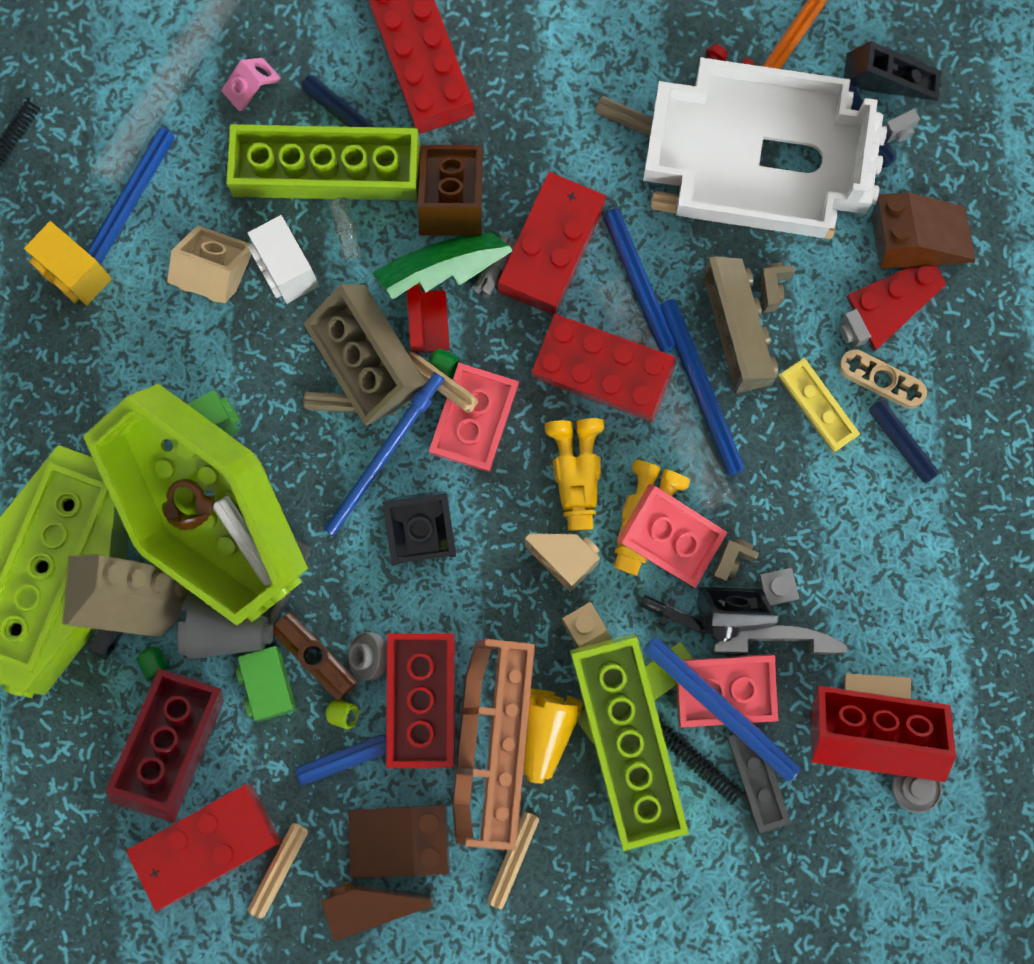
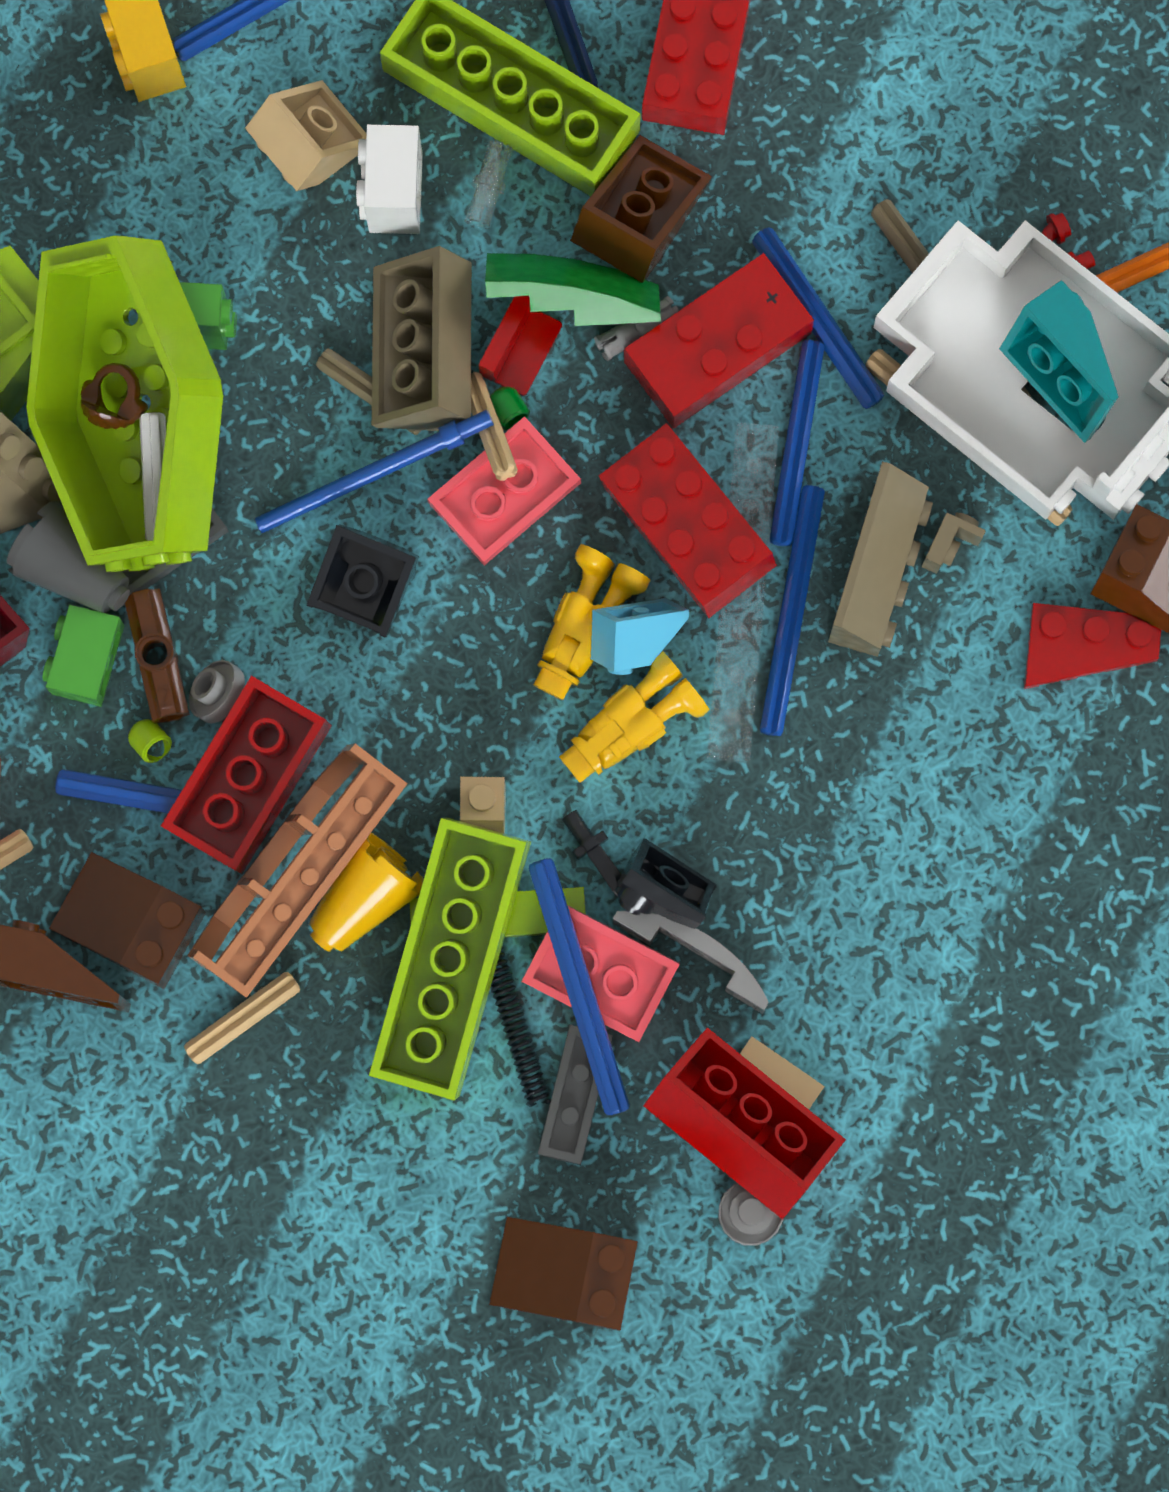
camera: 30 degrees right, 0 degrees up
(564, 556) = (509, 710): tan slope -> none
(614, 199) = (824, 325): none -> blue axle
(615, 459) = (634, 633): none -> medium azure slope
(672, 536) = (645, 759): coral plate -> none
(727, 563) = (692, 829): dark tan bracket -> none
(779, 586) = (737, 893): light grey plate -> none
(784, 128) = (1063, 358): none -> teal slope
(818, 405) = (917, 712): light yellow tile -> none
(825, 901) = (563, 1273): none -> reddish brown slope
(854, 329) = (1011, 647): light grey plate -> none
(894, 373) = (1037, 747): tan beam -> none
(903, 441) = (990, 812): dark blue axle -> none

